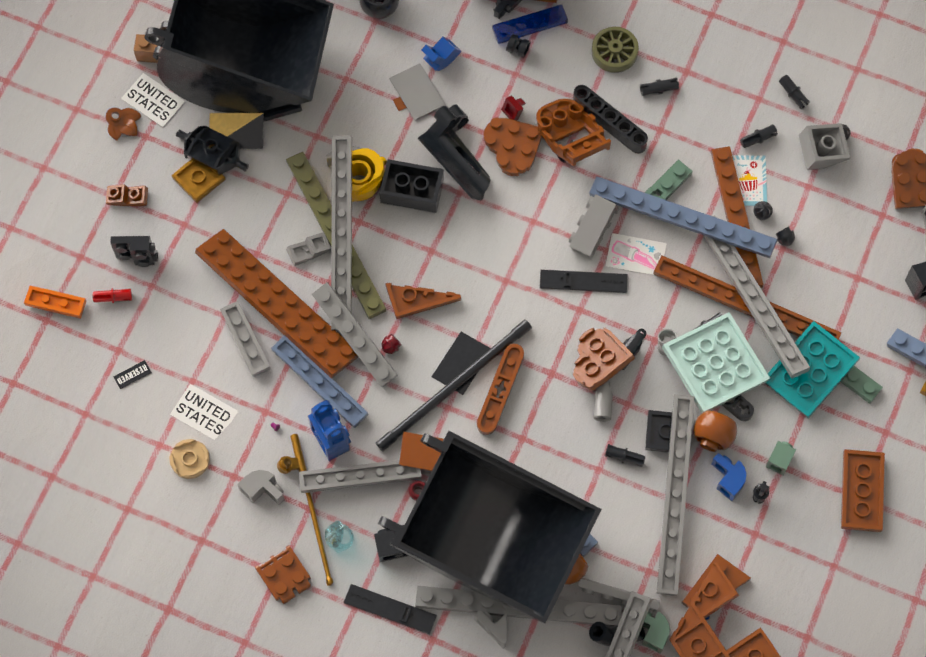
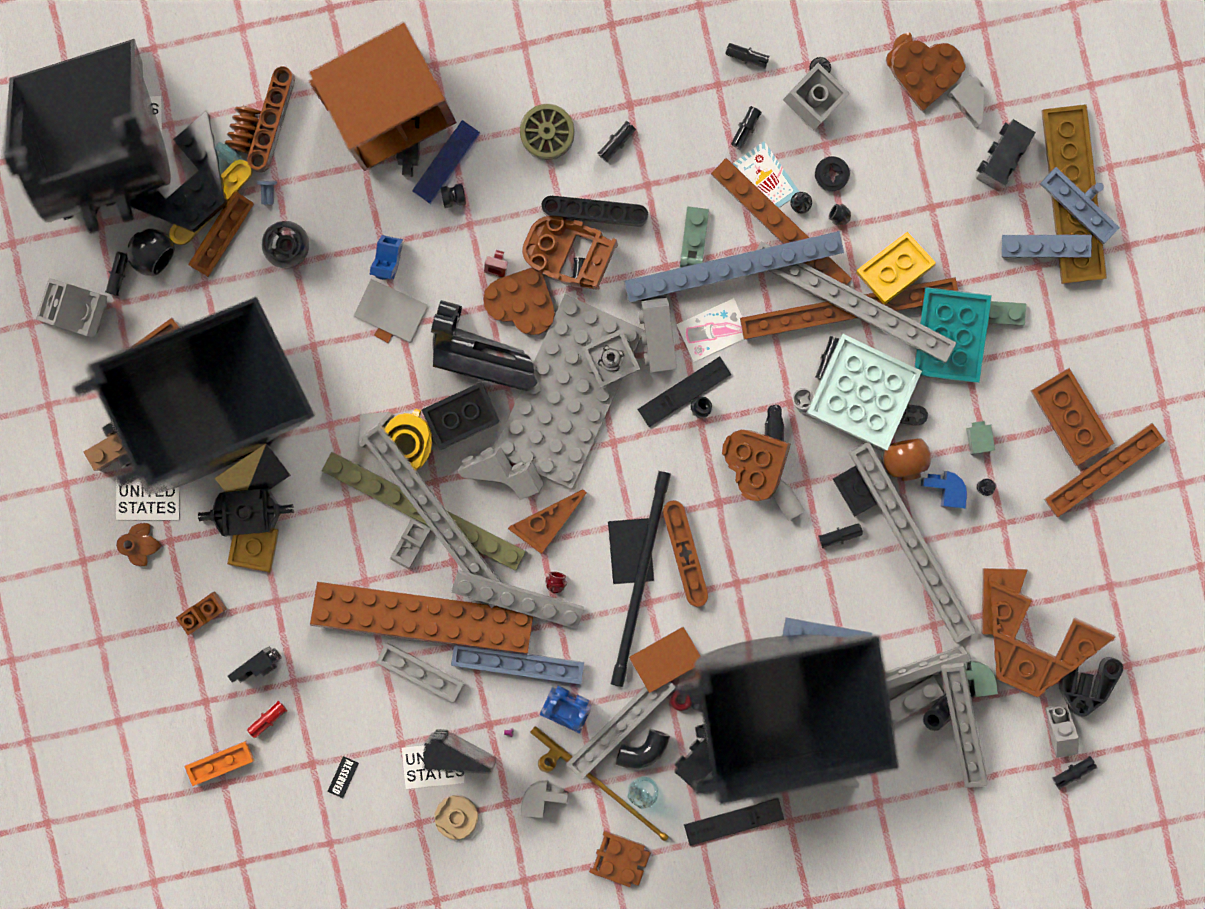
camera: 35 degrees left, 20 degrees up
(221, 399) = (452, 753): none -> black slope
(361, 509) = (644, 755): none -> black cylinder
(409, 232) = (494, 466): none -> light grey arch
(501, 227) = (566, 408): none -> light grey plate
(548, 210) = (617, 342): none -> light grey plate
(588, 296) = (701, 407): none -> black plate
(796, 199) = (838, 165): none -> black gear
(801, 296) = (895, 268): none -> yellow plate
(861, 545) = (1104, 470): none -> dark orange plate

